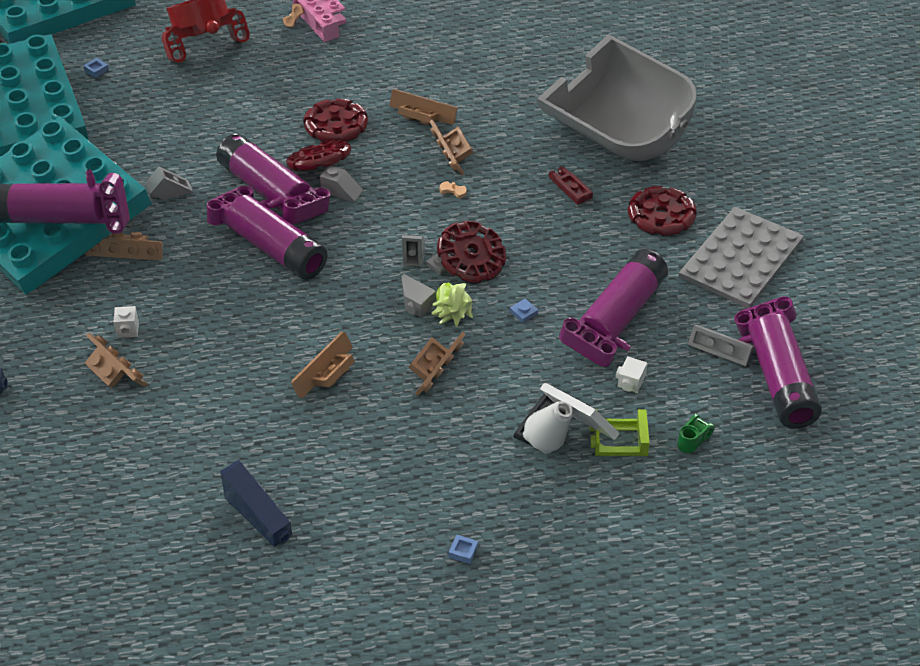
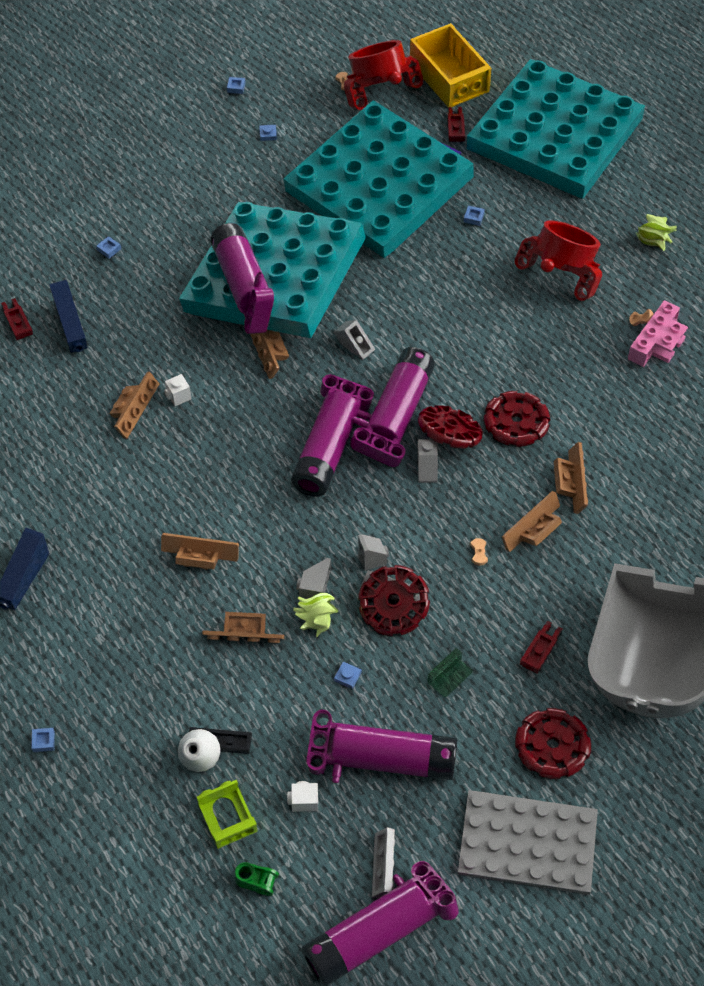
camera: 65 degrees right, 10 degrees up
(561, 246) = (449, 673): none -> clear green panel
(581, 411) = (214, 765): white tile -> none

